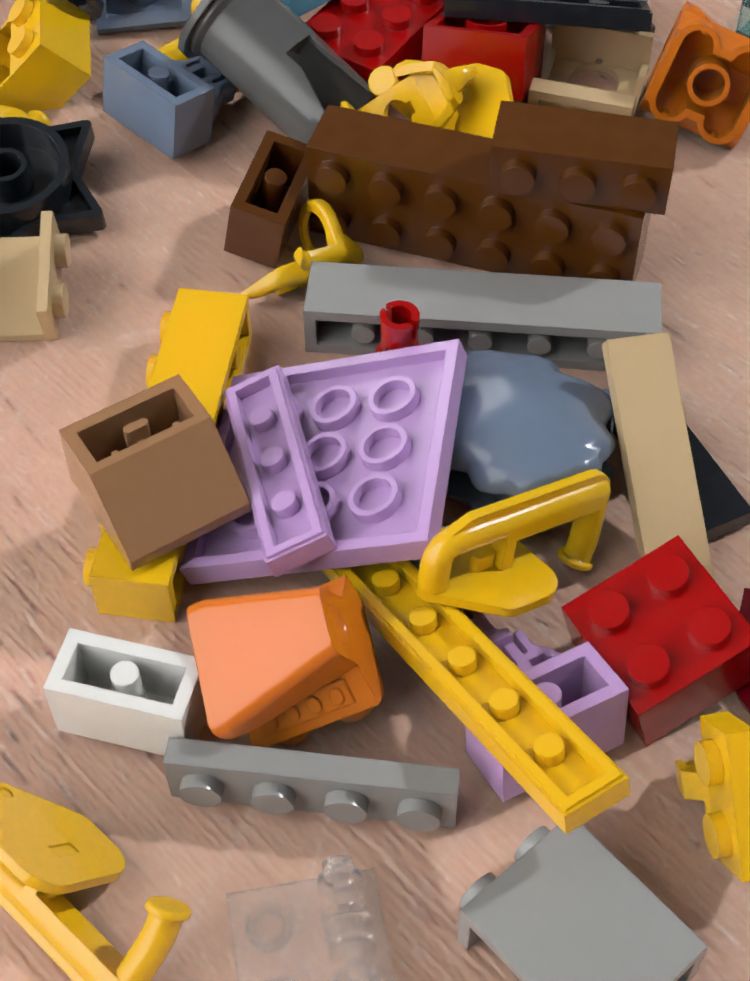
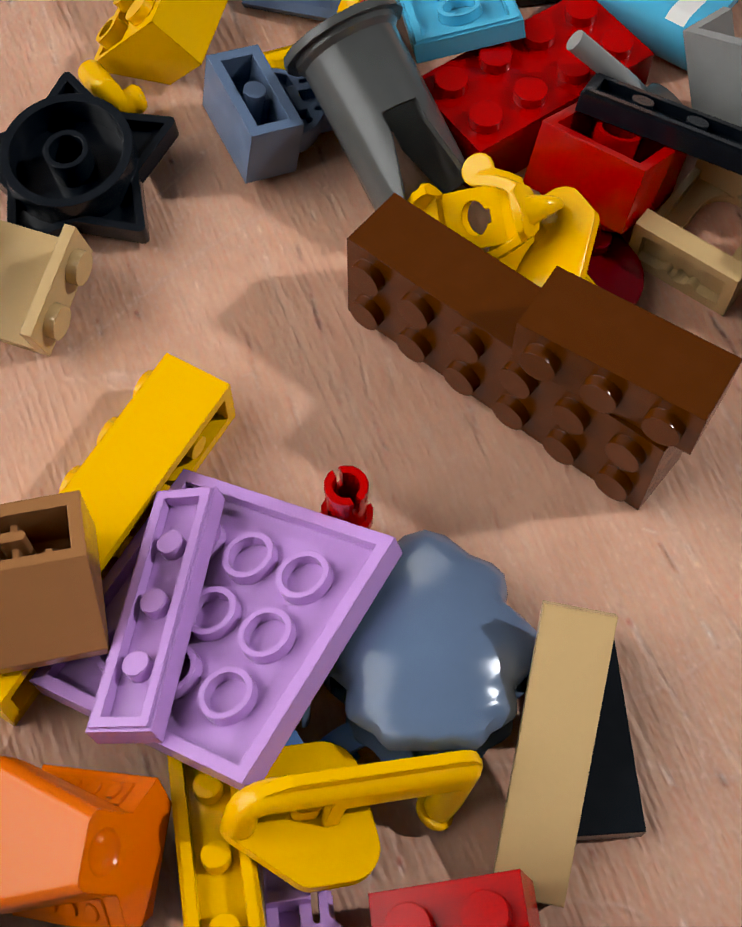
camera: 20 degrees right, 10 degrees up
(268, 201) = (303, 273): reddish brown brick -> none
(296, 274) = (348, 360): yellow piece -> none
(485, 310) = (471, 485): light grey brick -> none

